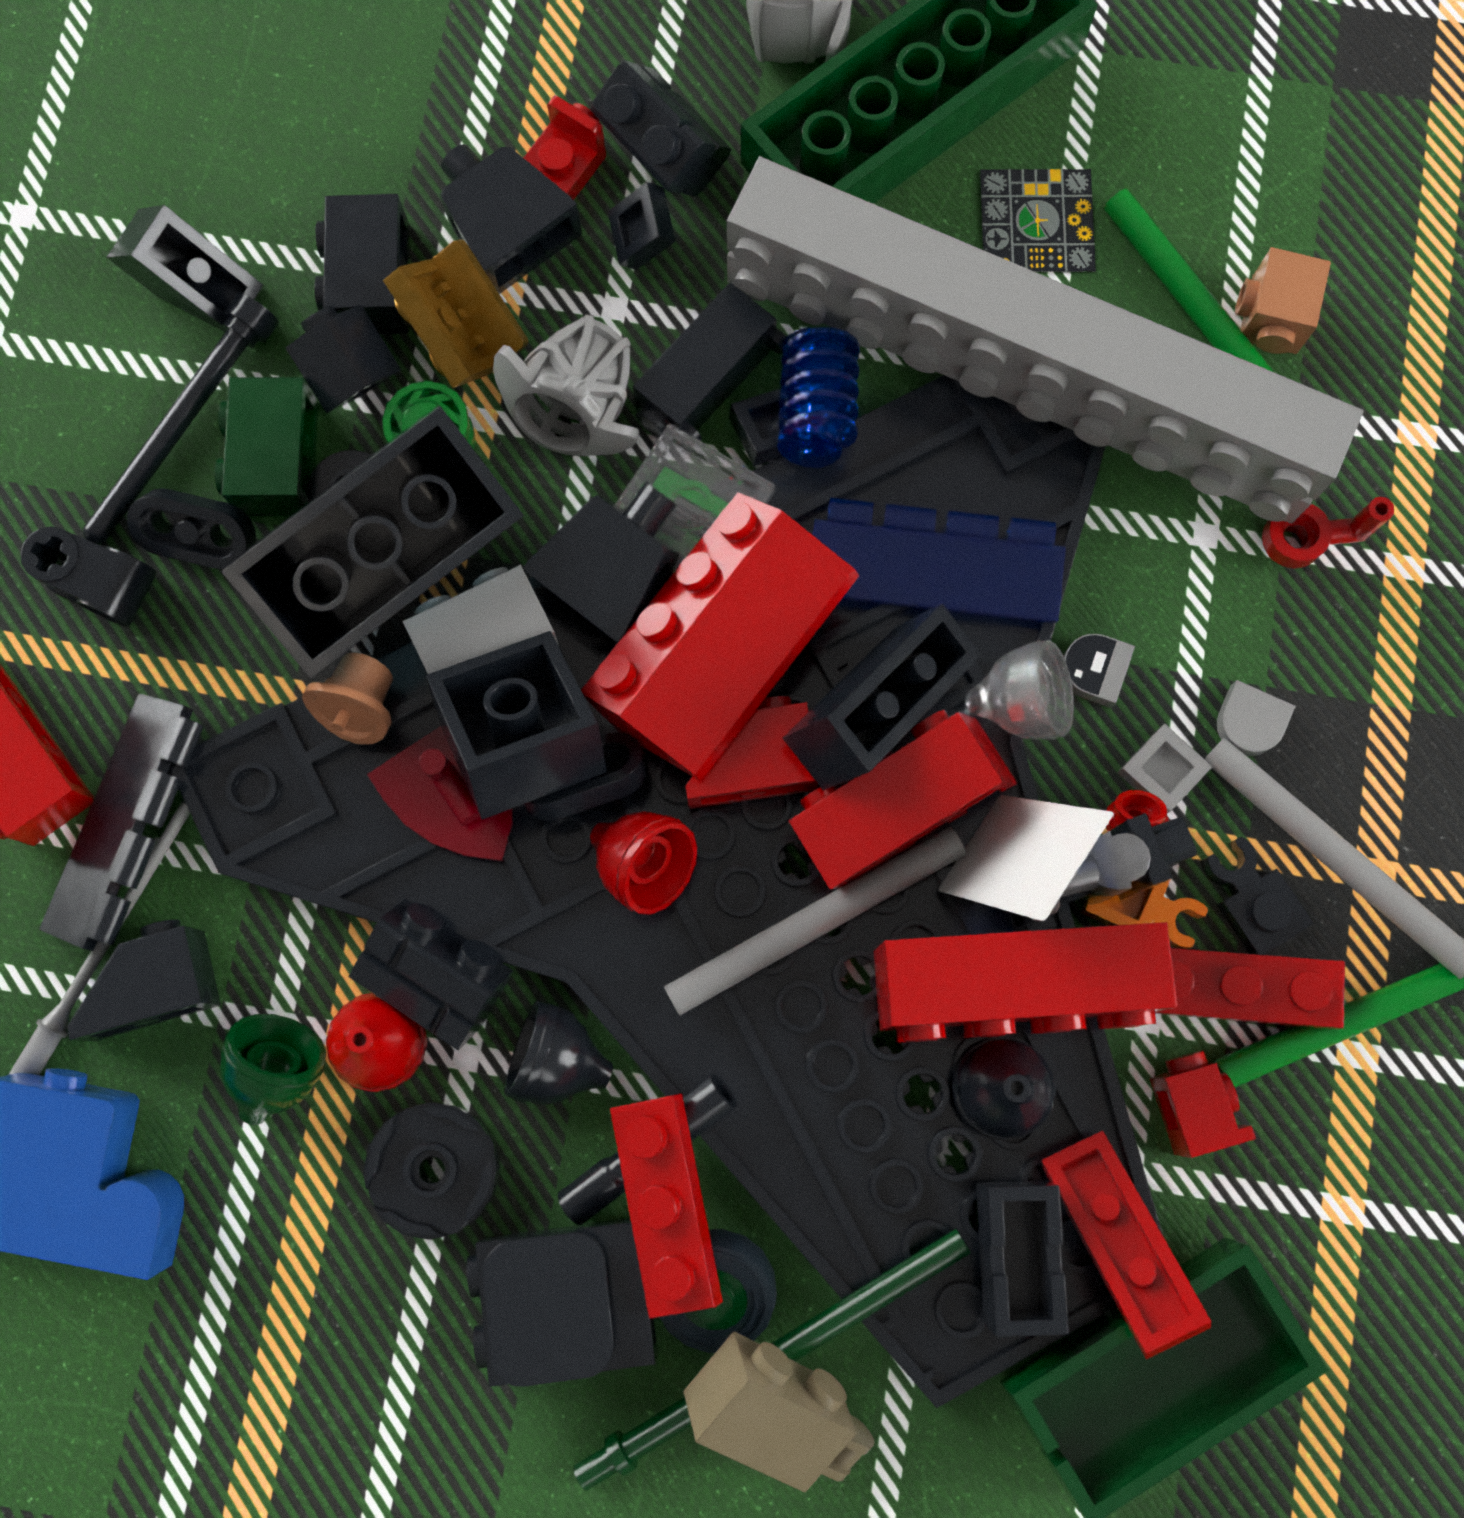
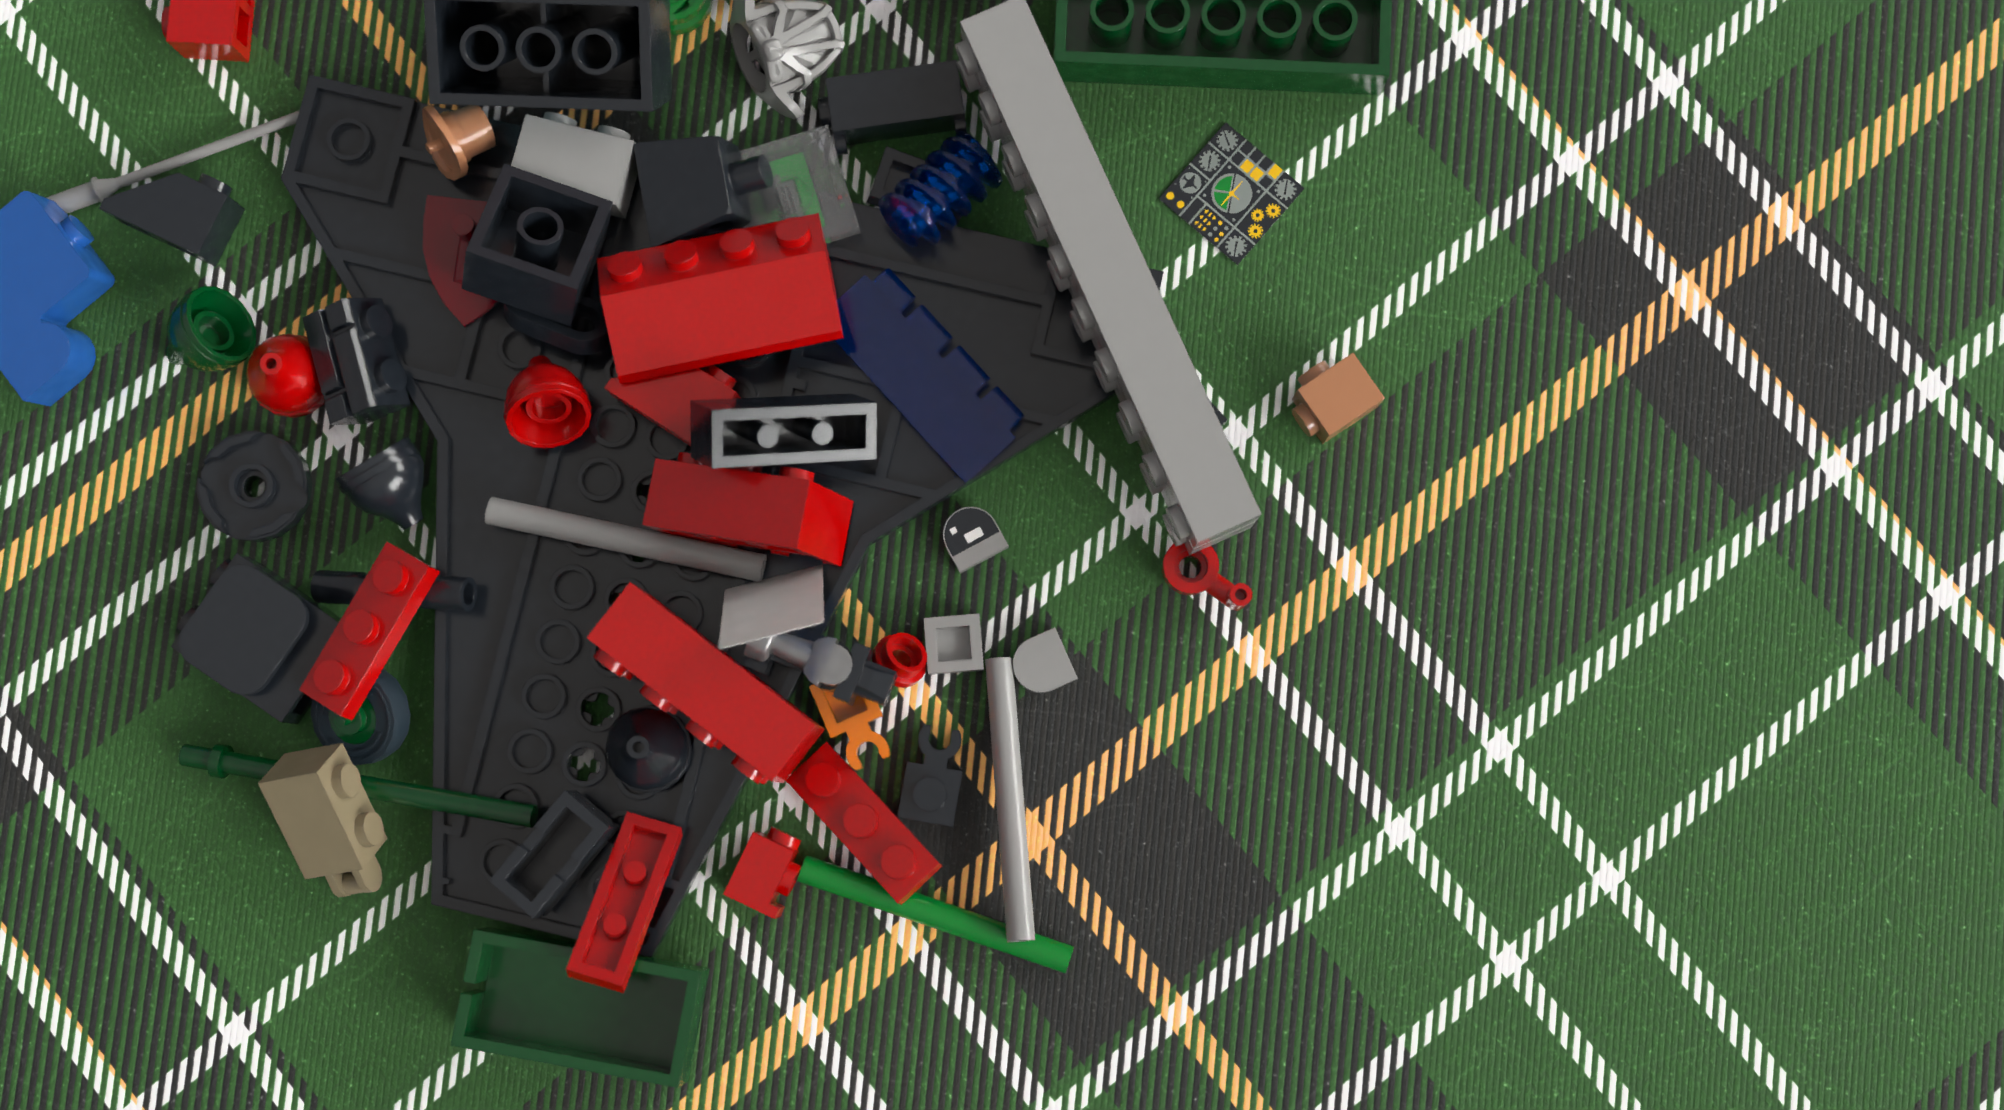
camera: 45 degrees right, 5 degrees up
(111, 839) = (265, 81): black windscreen -> none
(1027, 693) = (893, 513): clear helmet -> none
(1180, 278) = (1284, 332): green piece -> none

